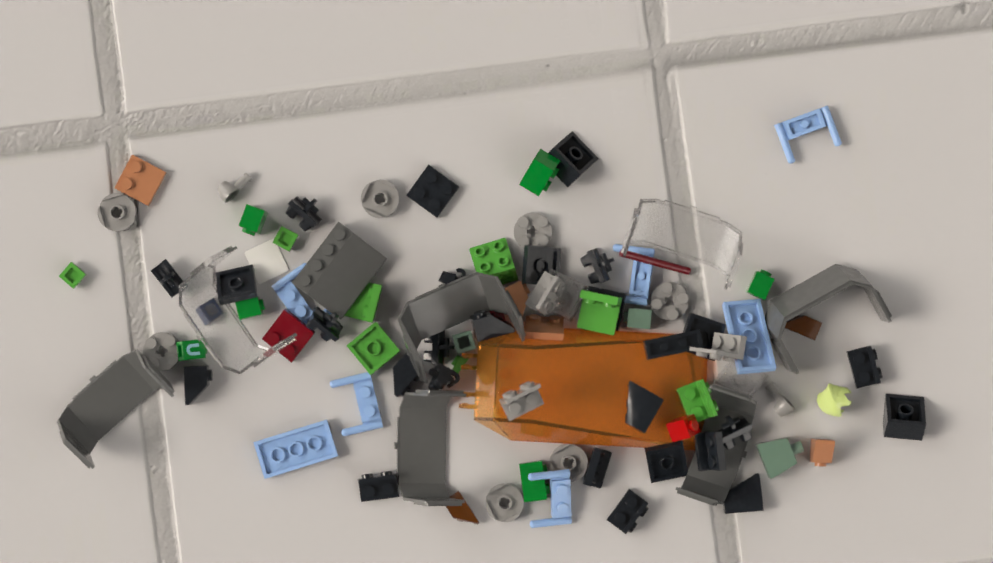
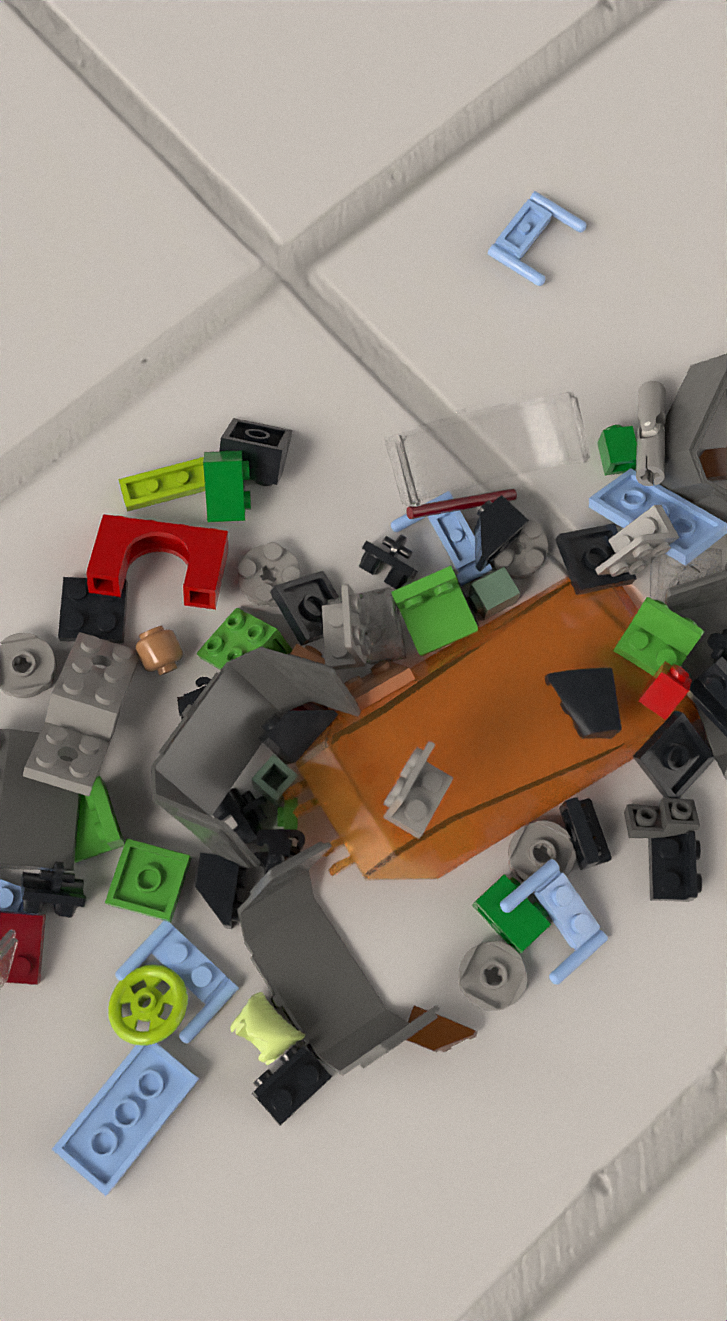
camera: 40 degrees left, 15 degrees down
(334, 422) = (159, 1028): none -> lime plate
(383, 454) = (265, 1028): none -> yellowish green hair
(393, 247) = (82, 714): none -> light grey bracket
(451, 236) = (159, 650): none -> medium nougat head
(471, 165) = (125, 539): none -> red arch
(511, 146) = (163, 484): none -> lime plate
(638, 487) = (667, 819): none -> dark grey slope
(660, 288) = (496, 530): none -> black slope
(672, 344) = (566, 588): black hinge -> none
(787, 282) = (651, 435): none -> light grey piece

